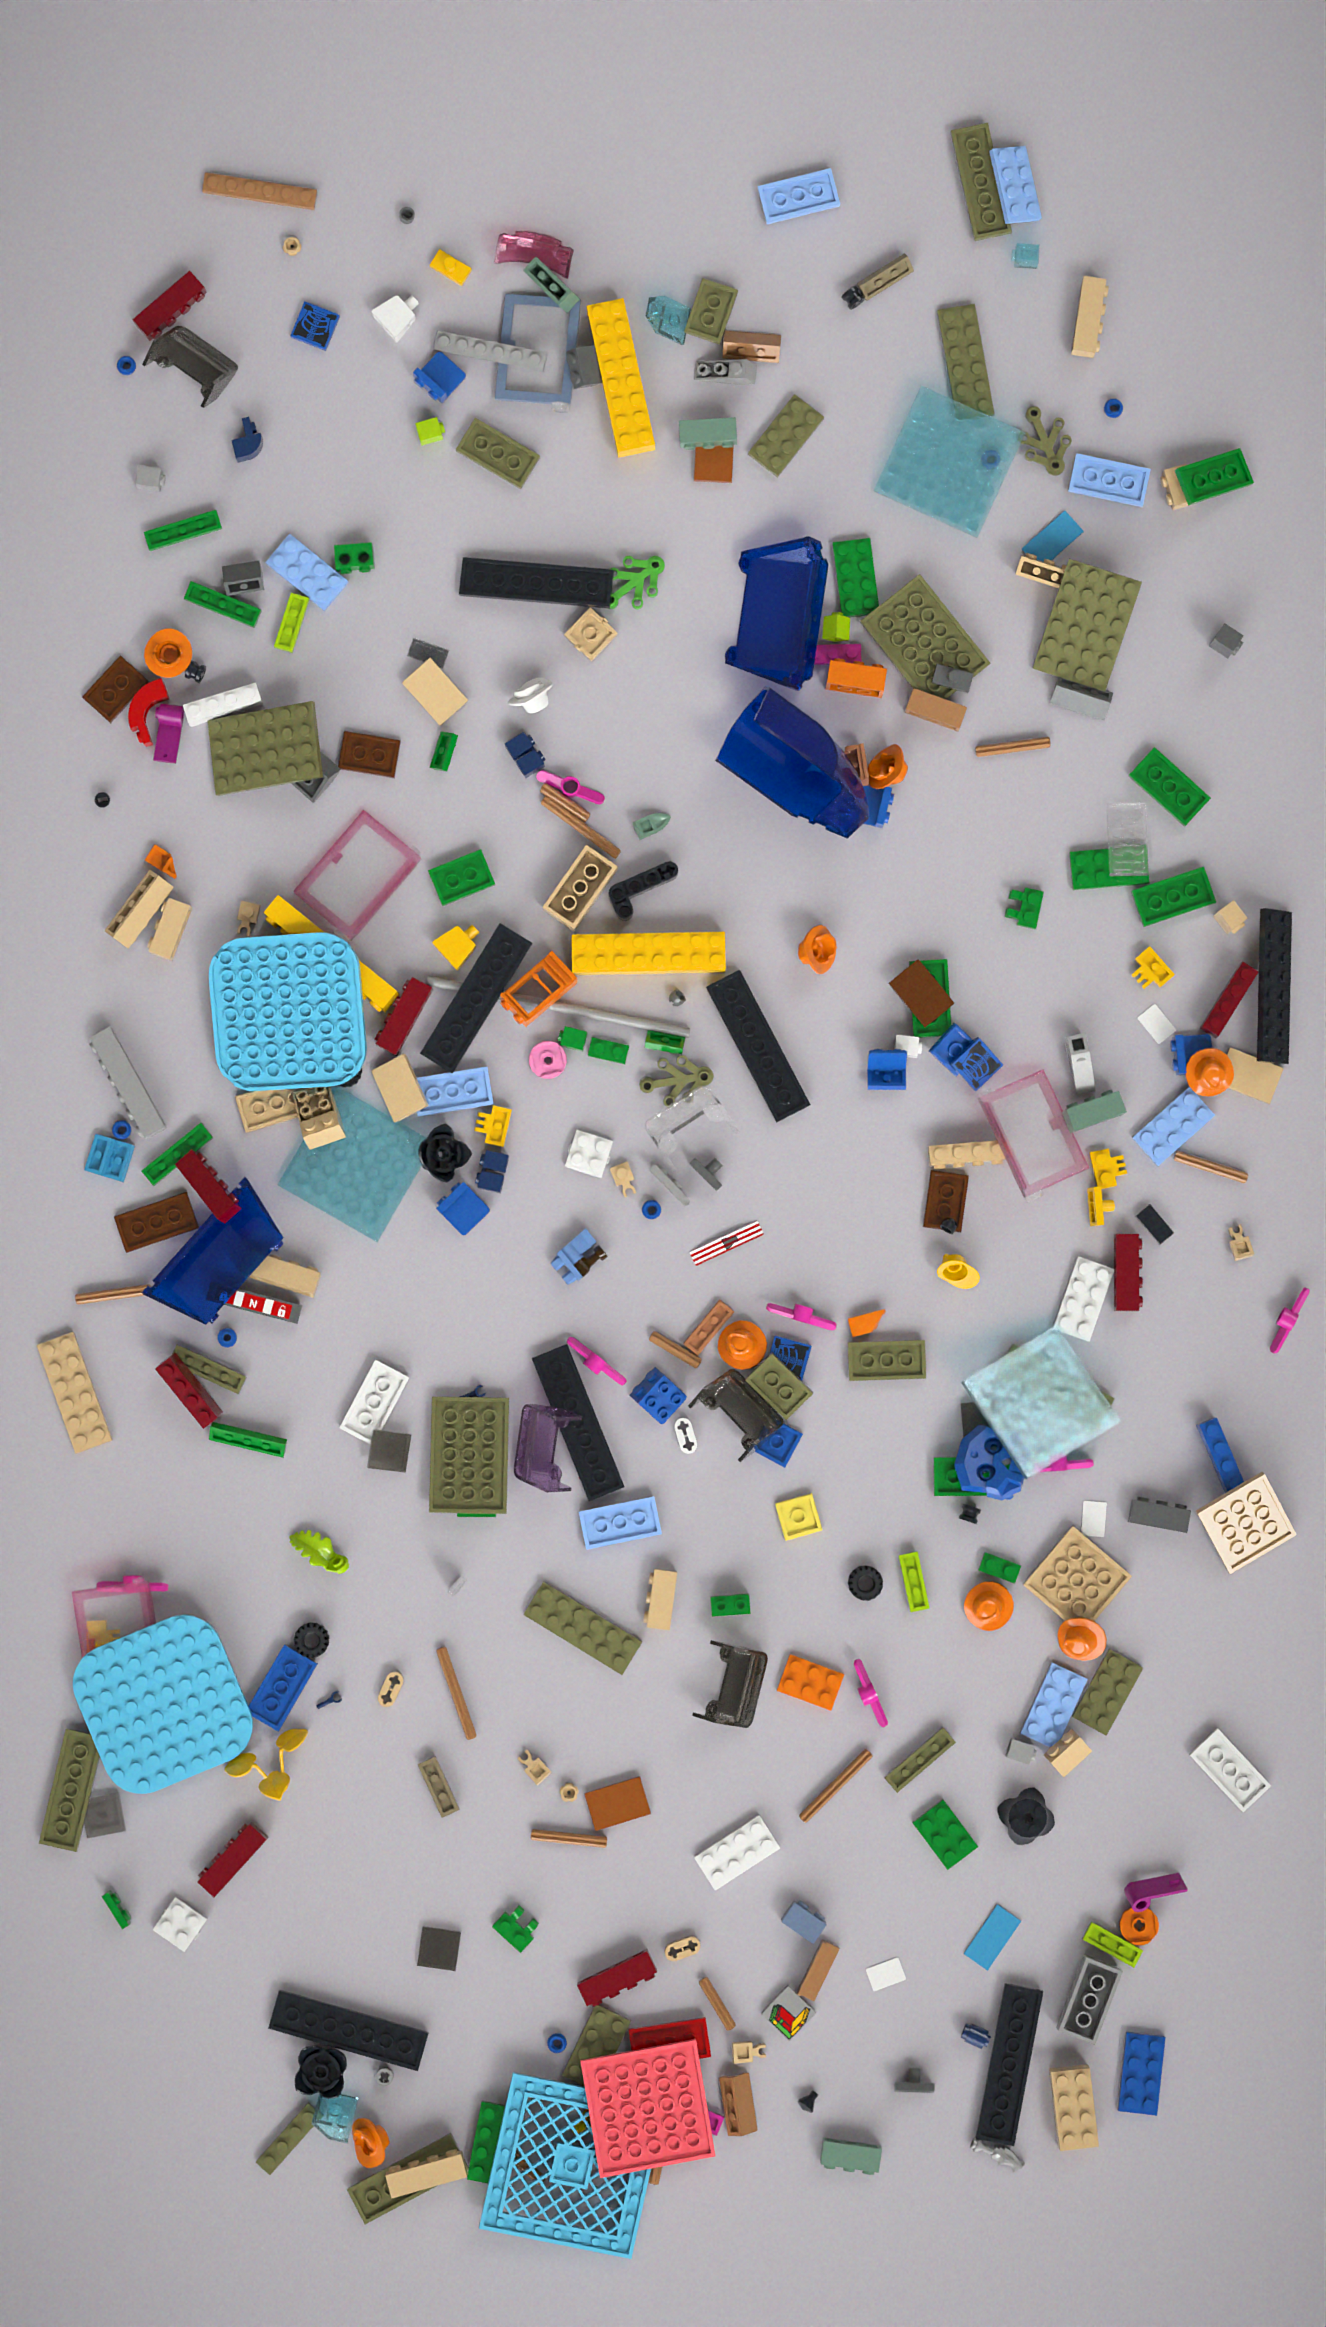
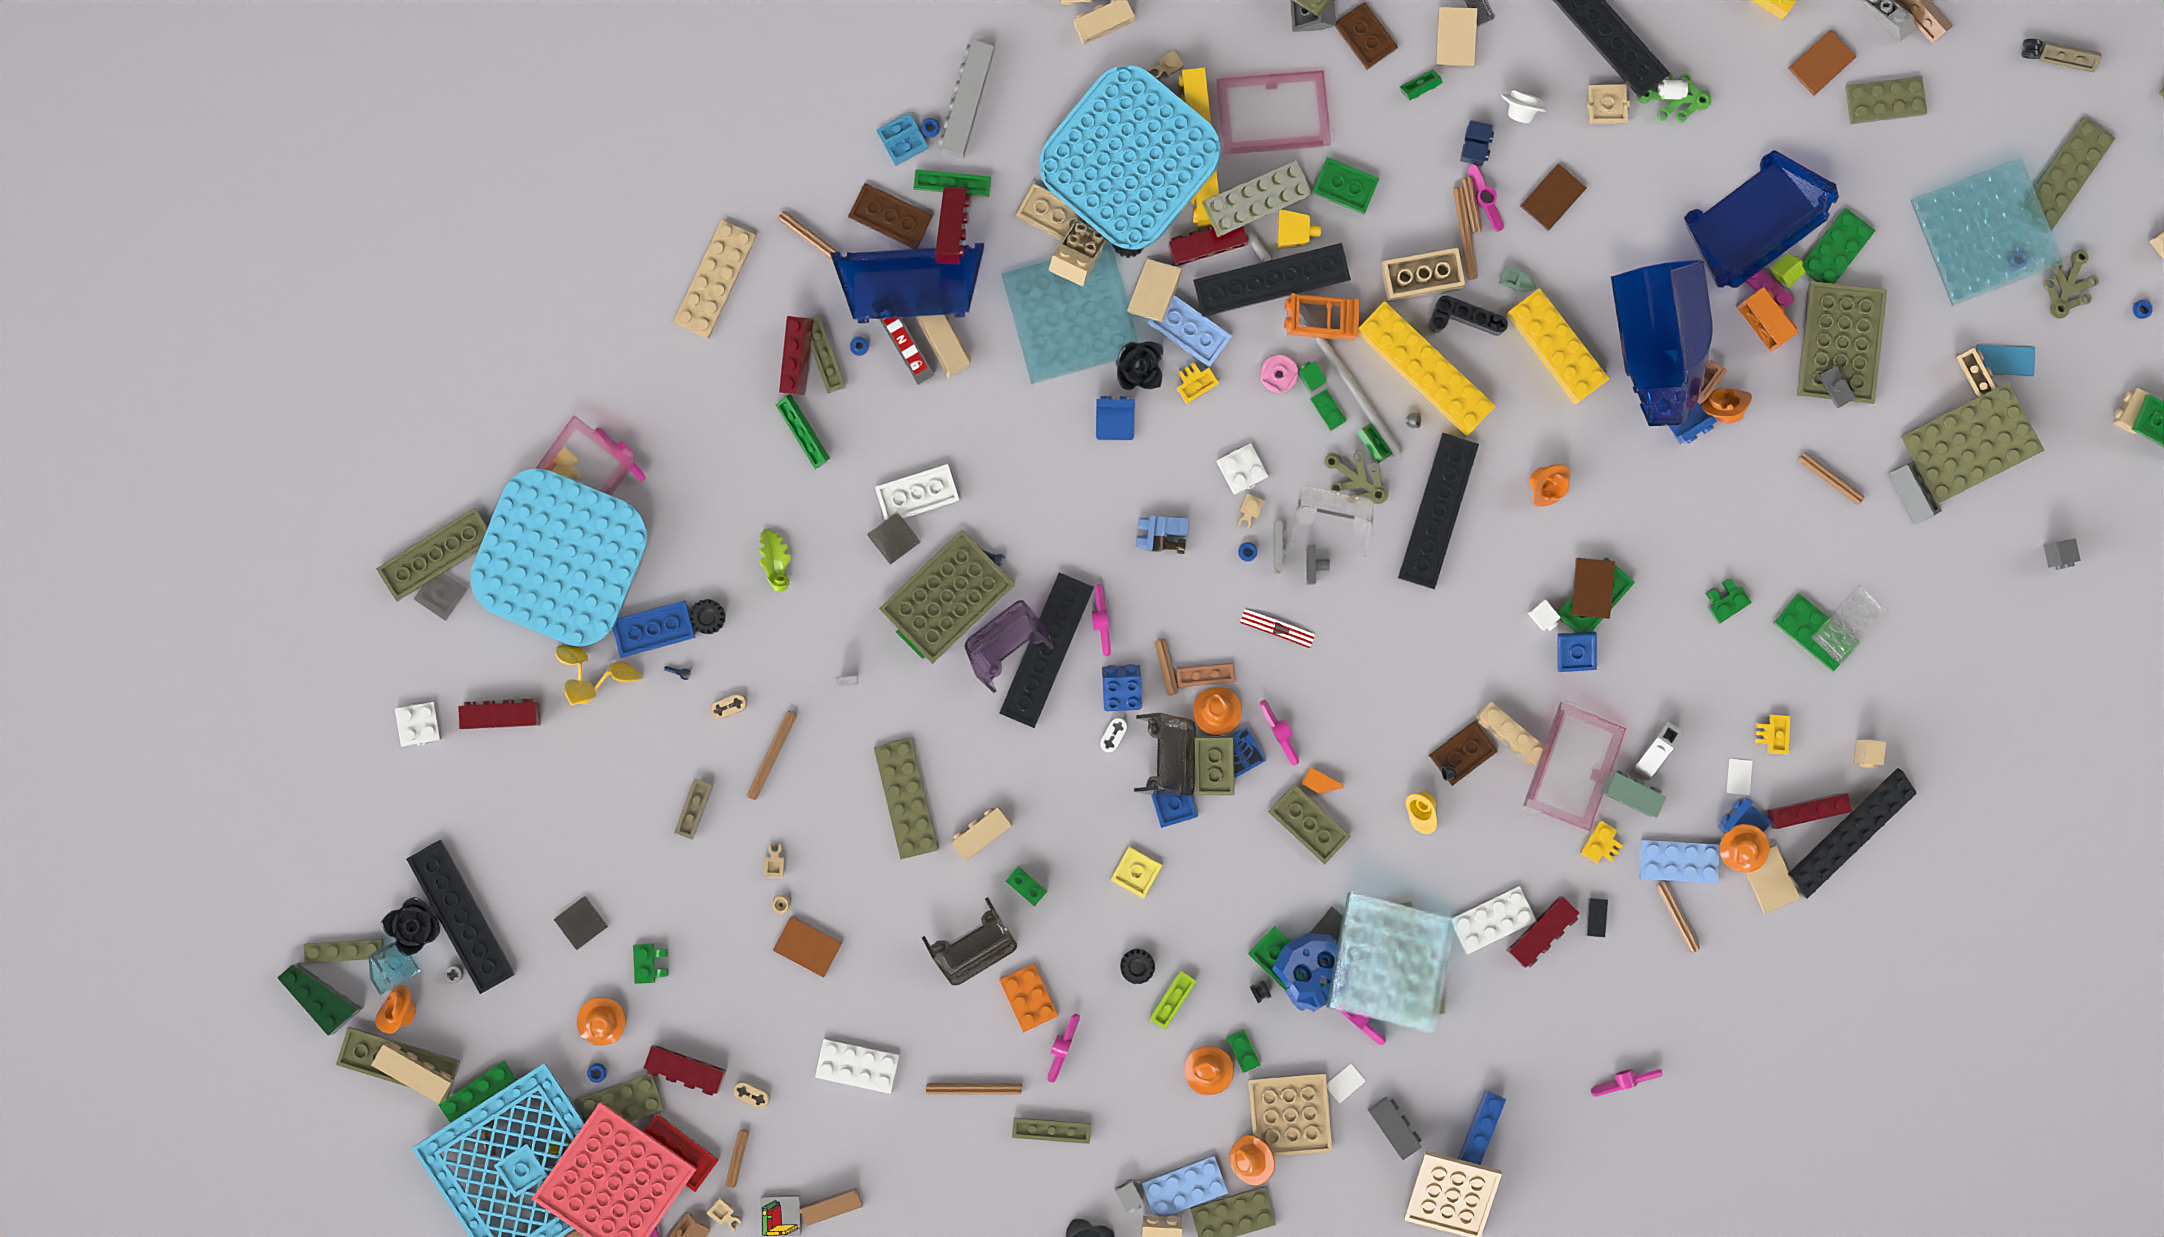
camera: 40 degrees right, 0 degrees up
(122, 1916) = (386, 661): green plate -> none
(306, 2190) = (320, 1000): none -> dark green wedge
(408, 950) = (1257, 198): none -> plate
(491, 1181) = (1170, 408): dark blue piece -> none
(523, 2003) = (601, 1021): none -> orange hat
(569, 1838) = (749, 937): medium nougat axle -> none
(618, 739) = (1553, 197): none -> reddish brown tile
(620, 1523) = (1006, 750): light blue plate -> none
(627, 578) = (1673, 89): none -> white brick
(708, 433) = (1833, 42): sand green brick -> none
(726, 844) = (1557, 346): none -> yellow brick
(804, 1921) = (855, 1162): sand blue brick -> none
(886, 1069) = (1514, 617): blue bracket -> none
(935, 709) = (1802, 398): medium nougat panel -> none
(945, 1834) = (1017, 1201): green plate -> none
(976, 1064) = (1582, 677): tile -> none
(1098, 1206) = (1568, 864): yellow tile -> none
(1109, 480) = (2089, 357): light blue plate -> none
(1169, 786) = (1916, 617): green plate -> none
(1173, 896) = (1841, 698): green plate -> none
(1240, 1246) = (1643, 994): tan plate -> none

